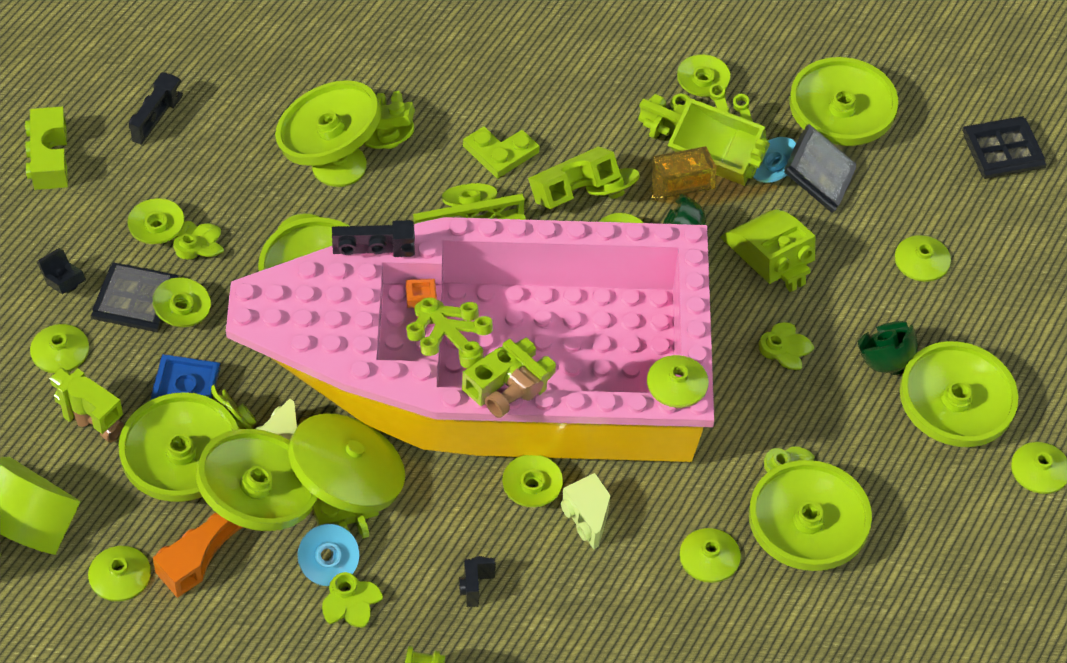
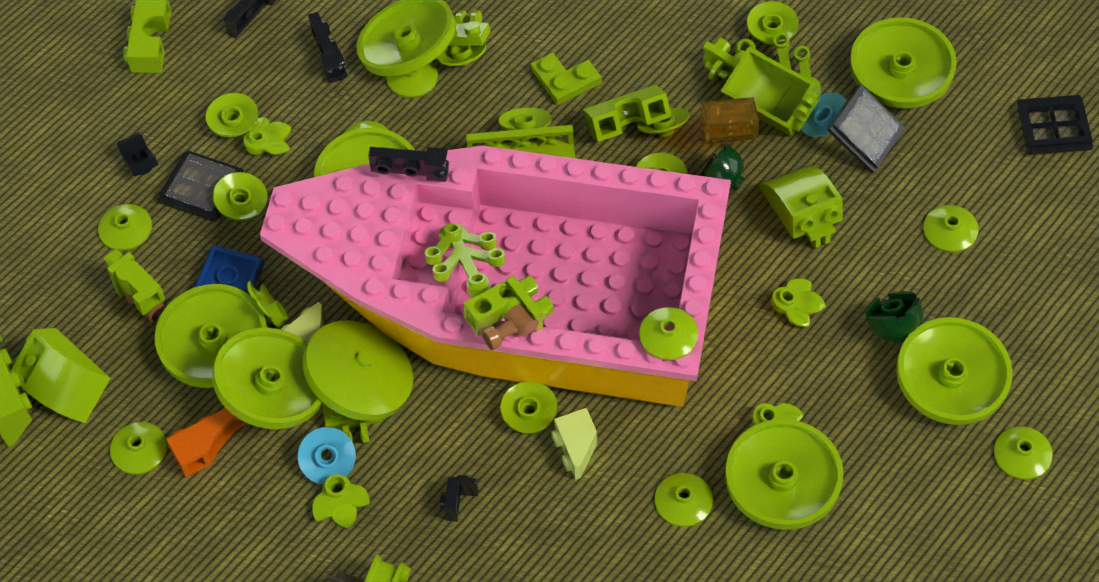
camera: 15 degrees right, 5 degrees up
(252, 153) = (331, 56): none -> black plate
(418, 290) = (449, 213): orange tile -> none

